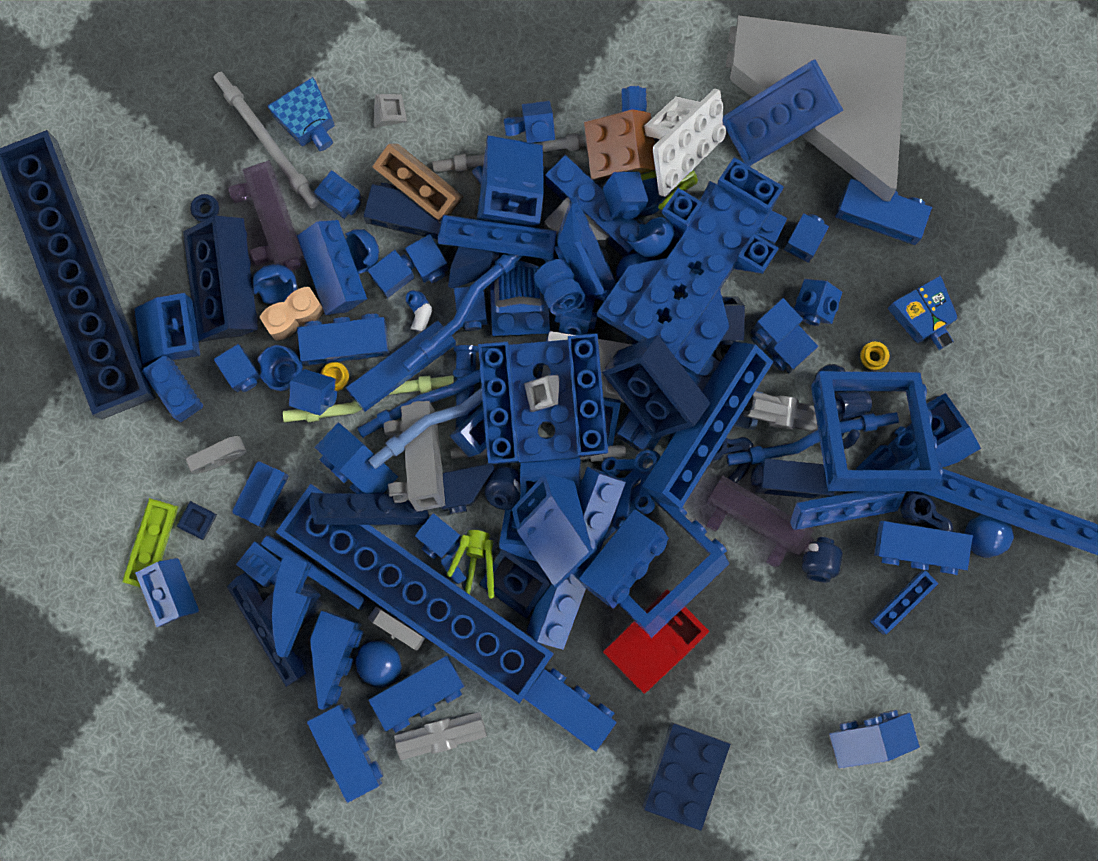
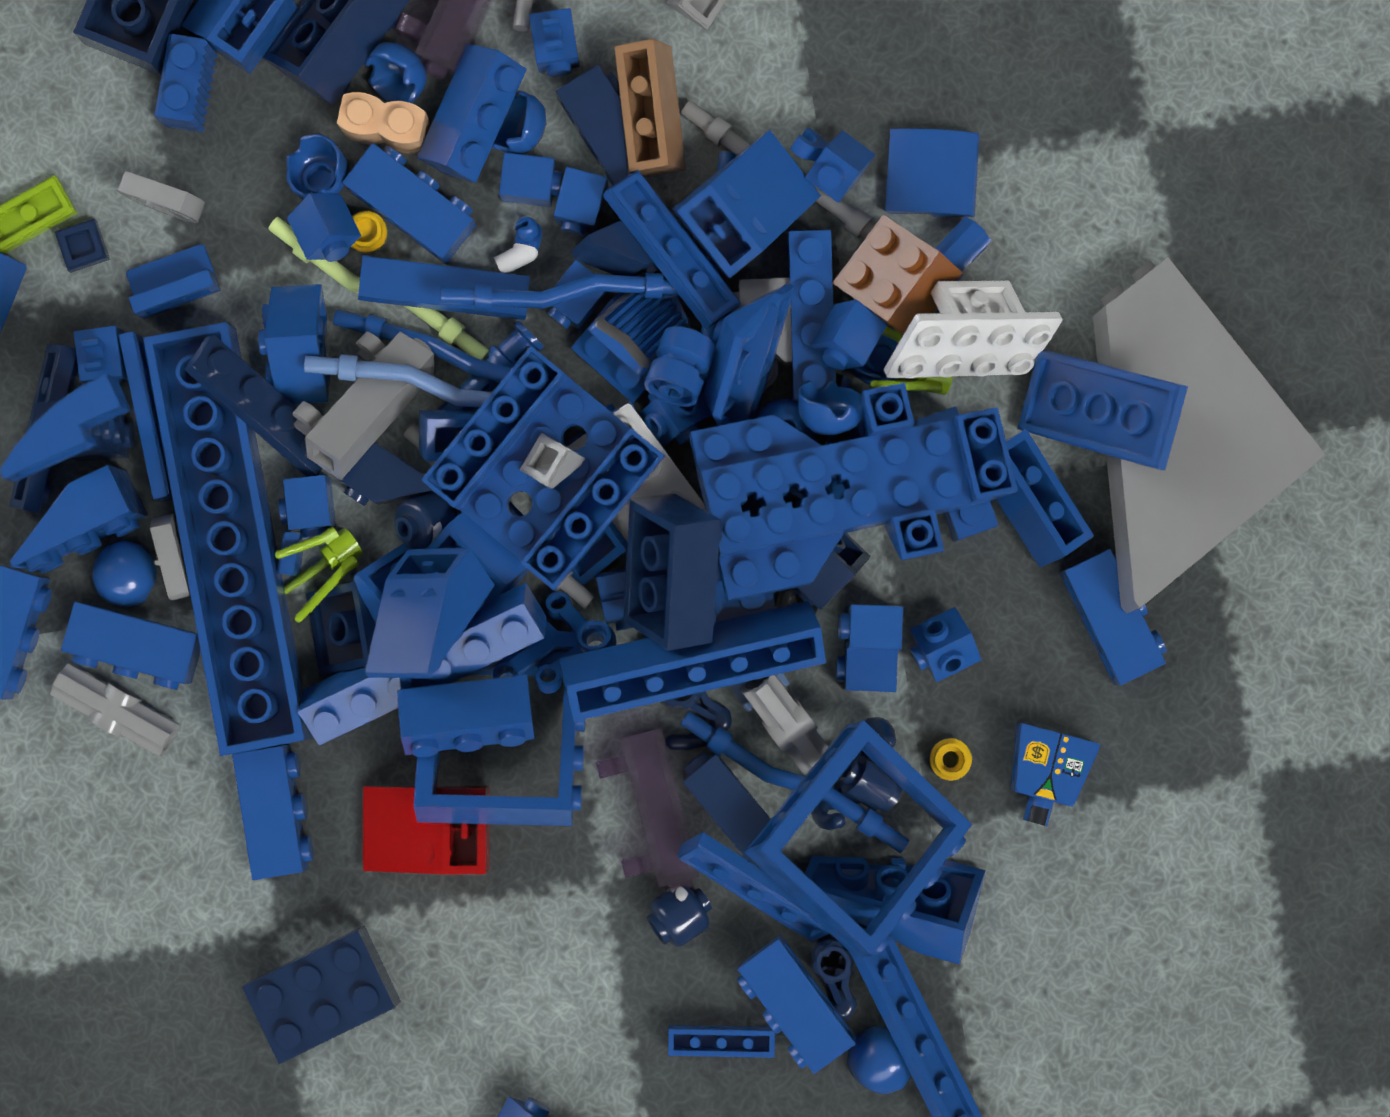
camera: 45 degrees right, 5 degrees up
(238, 369) = (273, 127): blue brick -> none
(584, 84) = (932, 172): none -> blue slope
(802, 190) = (1041, 506): none -> blue brick
(806, 237) = (1002, 565): blue brick -> none

